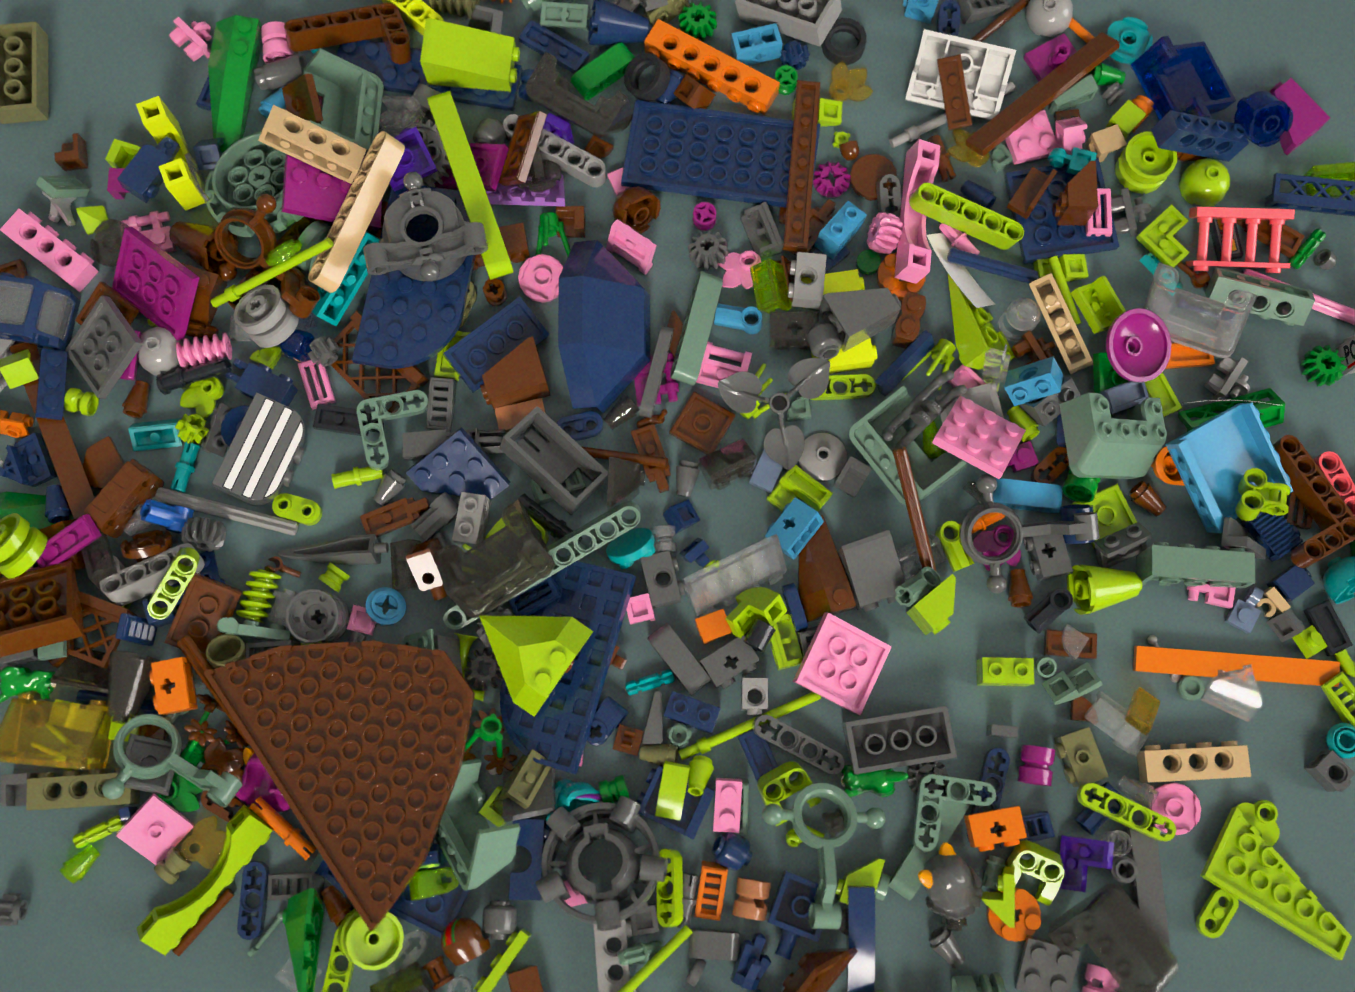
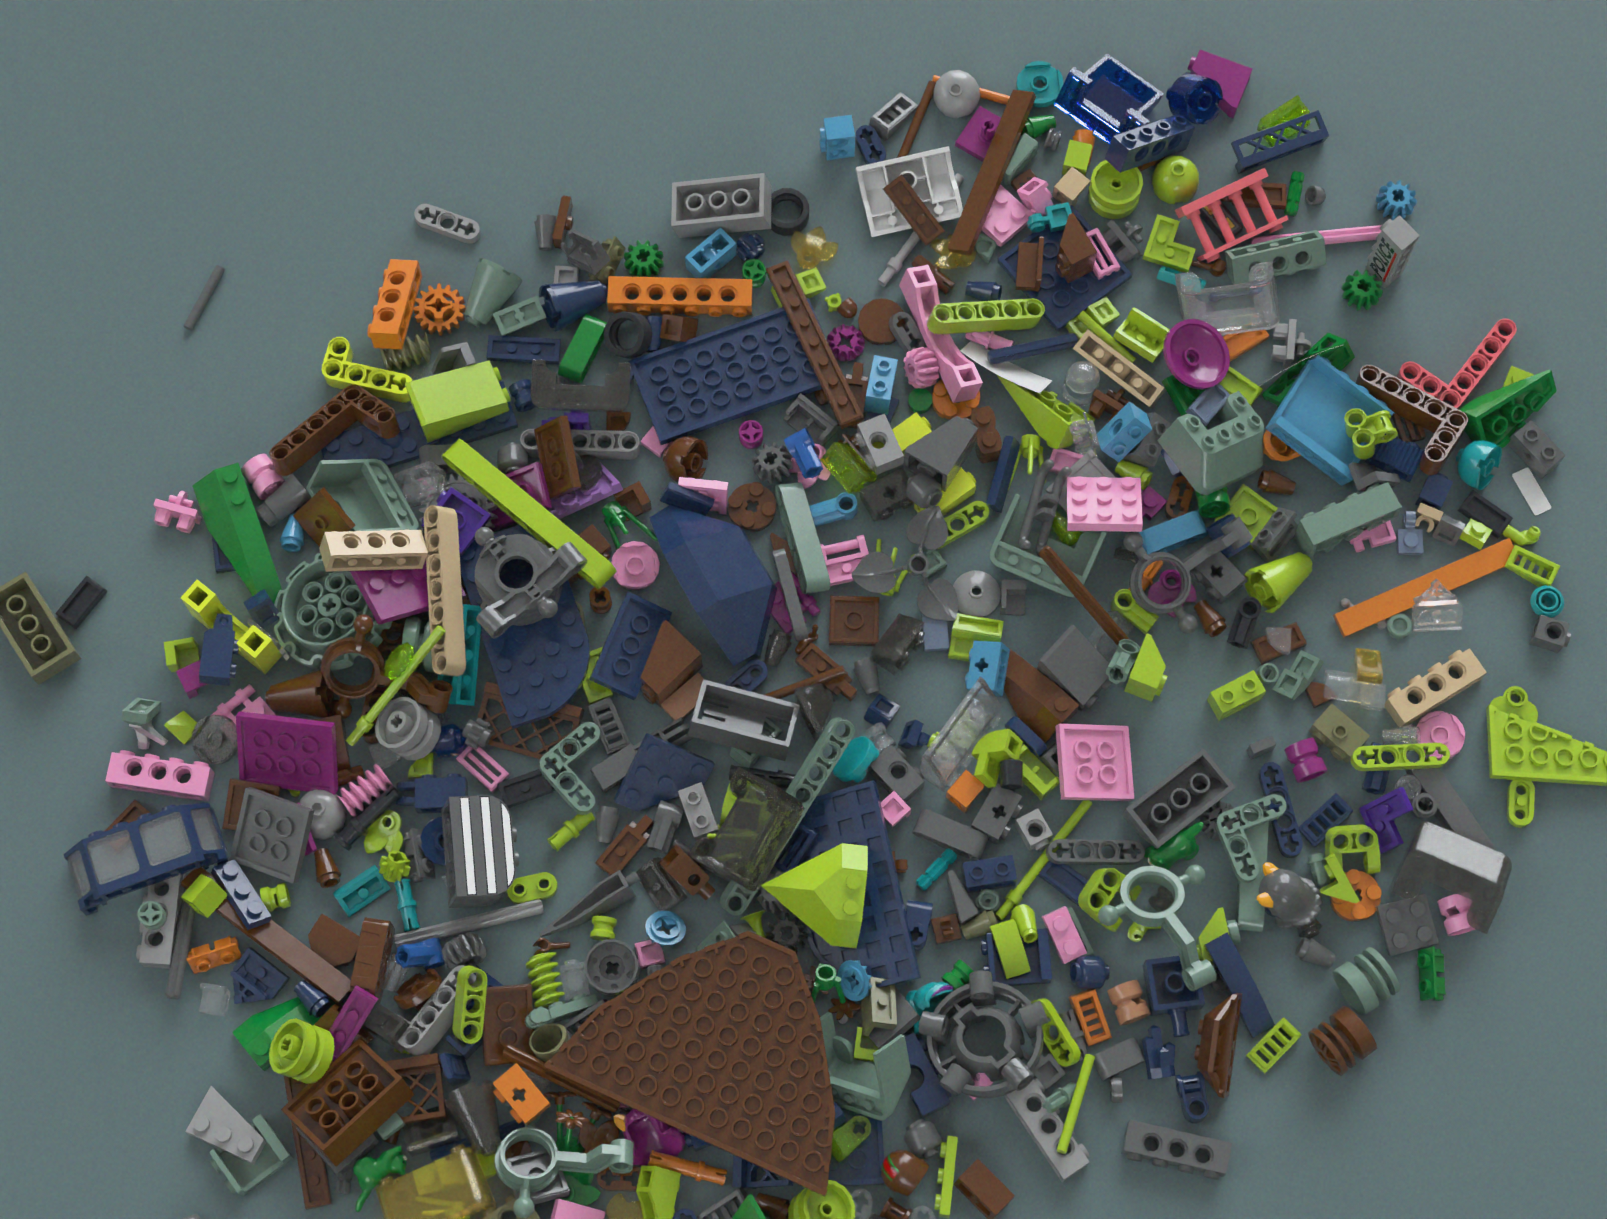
camera: 30 degrees left, 5 degrees down
(73, 154) = (126, 678): reddish brown panel -> none
(75, 74) = (81, 602): none -> black tile
(515, 744) = (850, 989): none -> dark azure gear
(614, 242) = (686, 499): none -> dark blue tile
(667, 266) = (754, 493): none -> reddish brown plate
(739, 249) = (802, 449): none -> blue piece
(1009, 820) = (1285, 833): orange brick -> none

